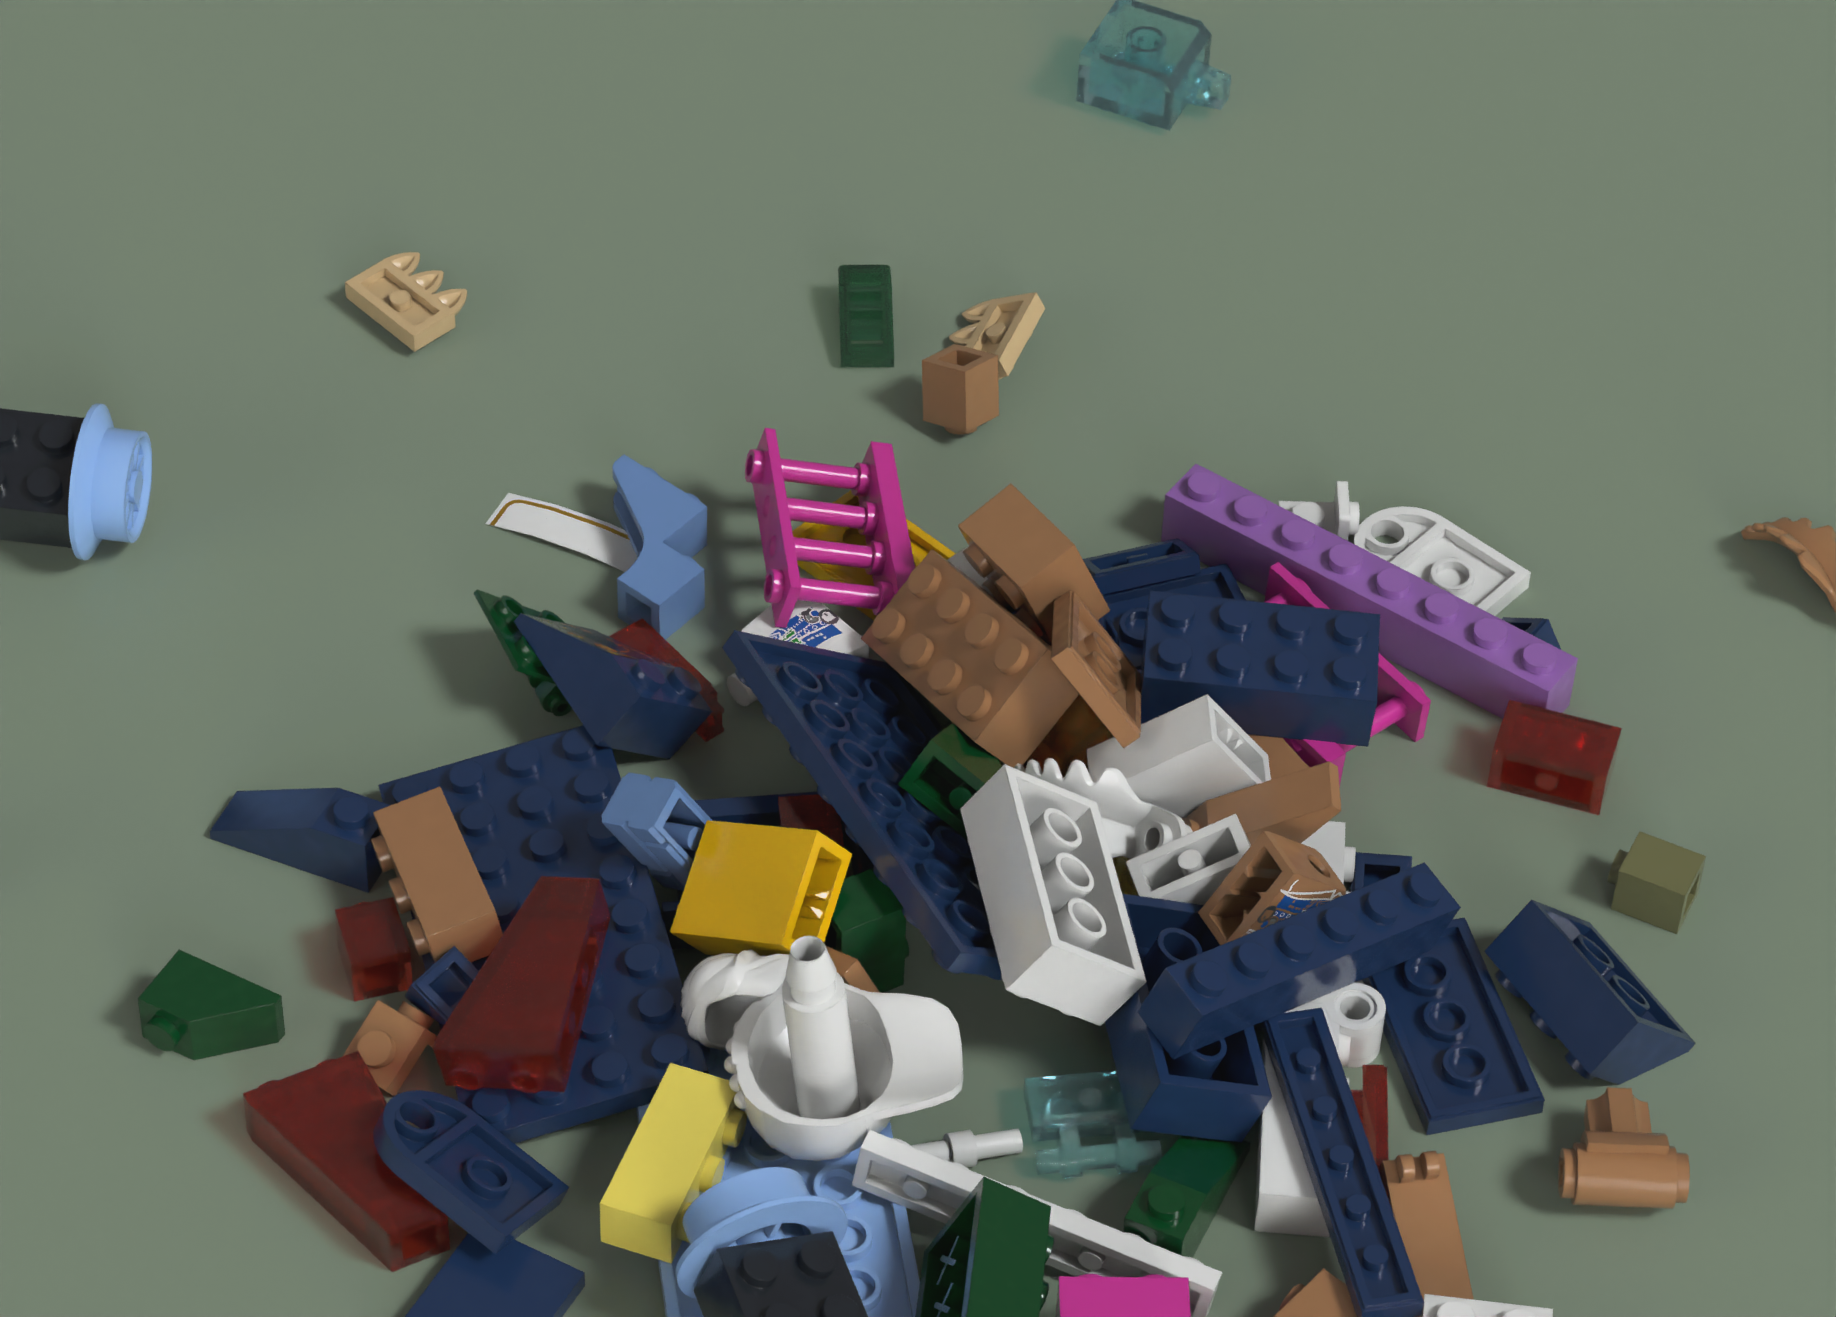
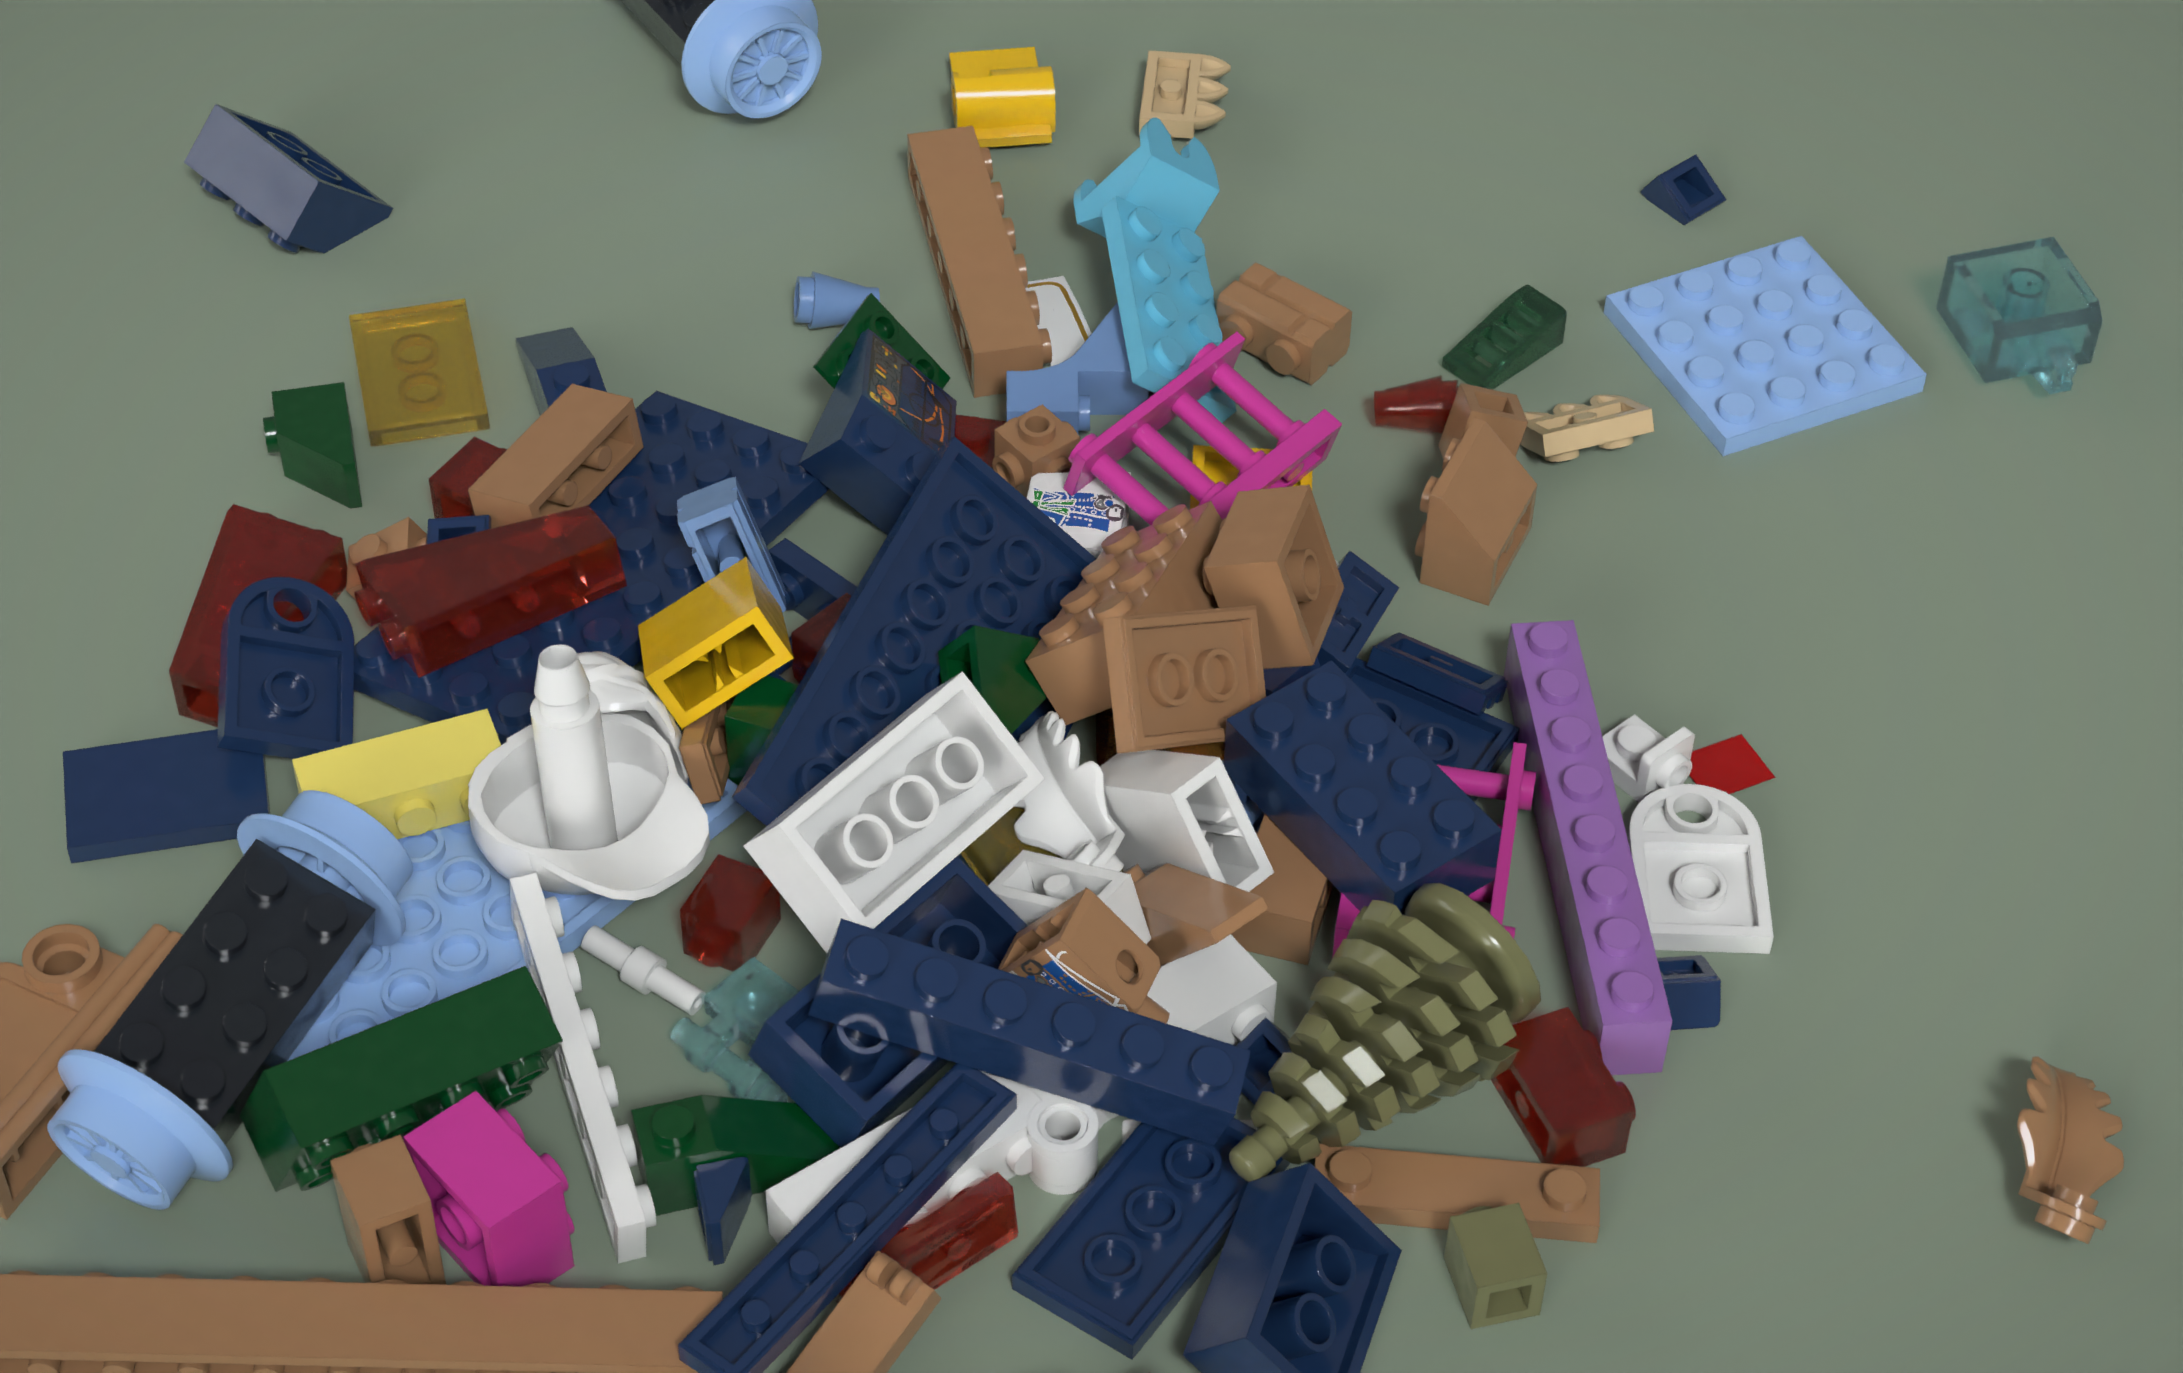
camera: 50 degrees right, 0 degrees up
(173, 900) = (418, 372): none -> clear yellow tile
(287, 397) = (1003, 96): none -> yellow piece
(398, 630) = (827, 300): none -> medium blue cone
(453, 523) = (975, 258): none -> medium nougat brick
(553, 392) = (1156, 259): none -> medium azure hinge
(706, 621) = (1032, 446): none -> medium nougat brick
(719, 410) = (1284, 323): none -> medium nougat brick
(819, 130) = (1684, 191): none -> dark blue slope
(882, 400) = (1416, 405): none -> clear red cone
(985, 1072) = (729, 914): none -> clear red brick
(1011, 202) = (1763, 345): none -> light blue plate
(1033, 446) = (1474, 516): none -> medium nougat slope
(1229, 1235) = (722, 1203): none -> dark blue slope
(1363, 488) = (1729, 766): none -> red sticker
(1454, 779) = (1406, 1015): none -> olive plant
(1574, 860) = (1431, 1188): none -> medium nougat plate

